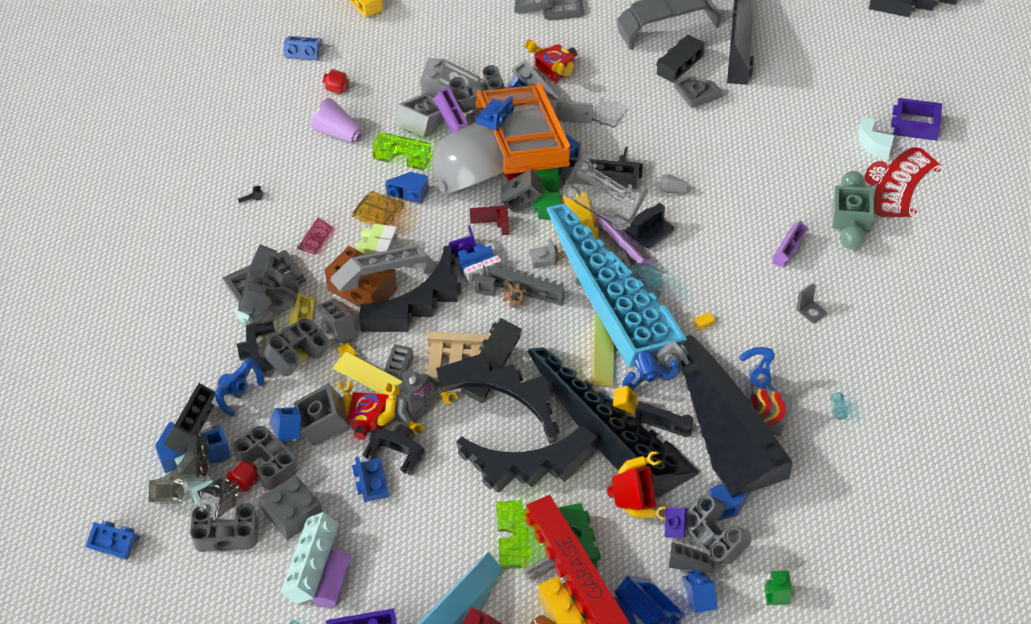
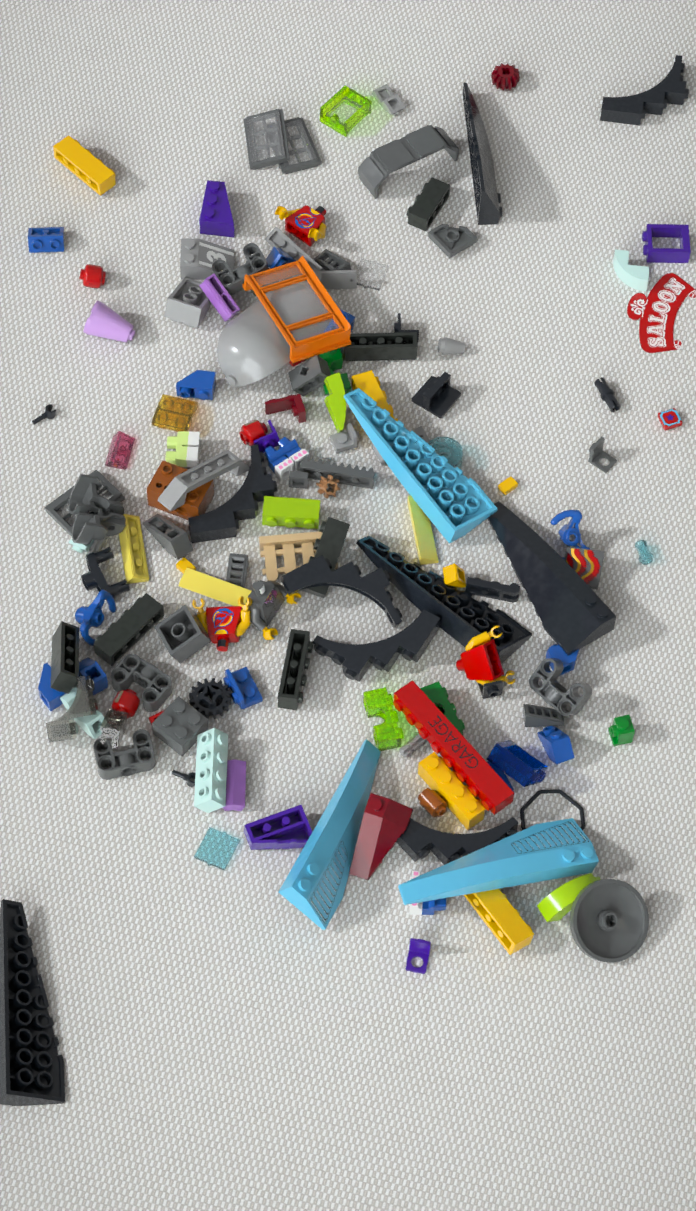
camera: 15 degrees left, 10 degrees up
(111, 540) = (25, 783): blue bracket -> none
(260, 405) = (128, 629): none -> pearl dark grey brick
(284, 562) = (185, 777): none -> black hand
(286, 423) = (153, 648): blue slope -> none
(303, 335) = (144, 558): dark grey beam -> none
(332, 484) = (218, 694): none -> black gear
(388, 146) = (167, 341): clear neon green arch -> none
(400, 441) = (258, 647): black connector -> none
(428, 468) = (294, 668): none -> pearl dark grey brick
(450, 233) = (252, 431): none -> red head
(468, 314) = (291, 512): none -> lime brick
(469, 41) = (216, 212): none -> dark purple wedge
(495, 113) = (271, 301): blue bracket -> none
(540, 215) = (335, 401): none -> lime slope
(574, 95) = (333, 259): none -> dark grey slope
(601, 194) = (390, 371): clear windscreen -> none
(626, 242) = (417, 413): lavender tile -> none
(640, 521) = (491, 689): none -> black bracket
(649, 371) = (470, 544): blue piece -> none
(671, 352) = (486, 526): light grey bracket -> none
(675, 522) = (523, 686): dark purple bracket -> none
(780, 257) = (571, 395): medium lavender piece -> none
(828, 249) = (607, 394): none -> black pin
(853, 209) = (623, 351): sand green brick -> none
(891, 280) = (669, 419): none -> red tile

